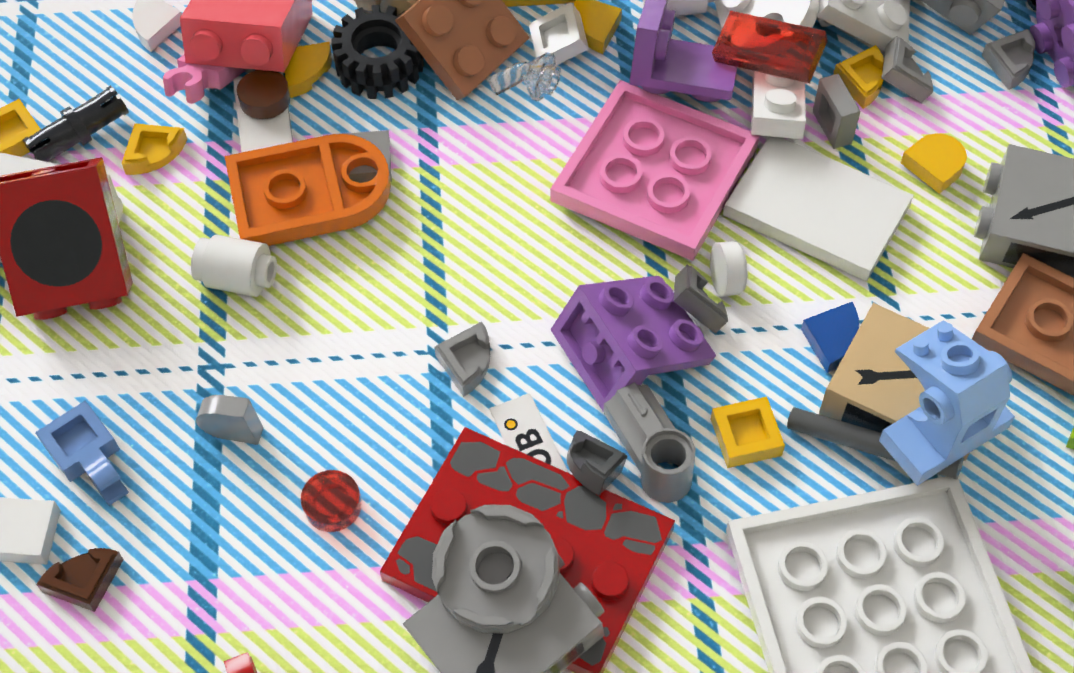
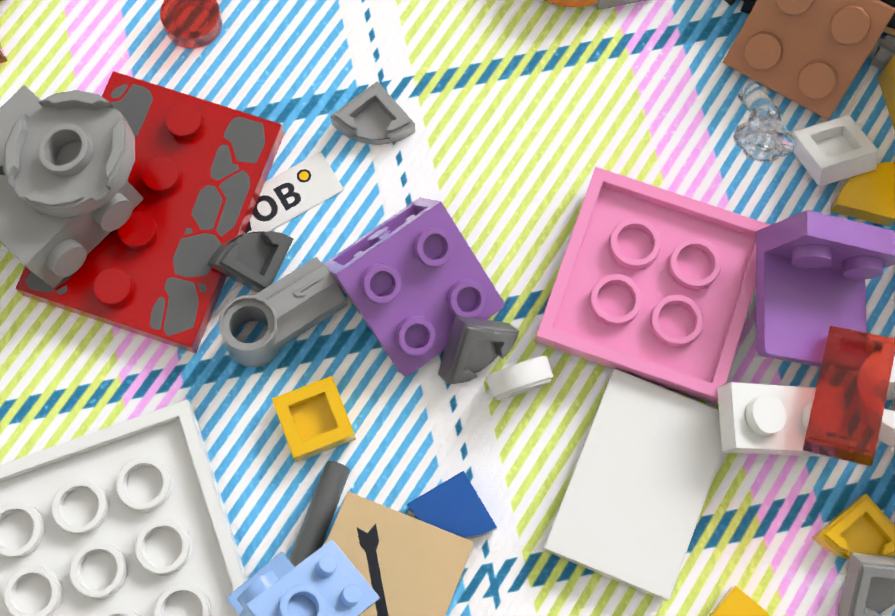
camera: 80 degrees right, 15 degrees up
(836, 111) = (782, 493): light grey tile -> none

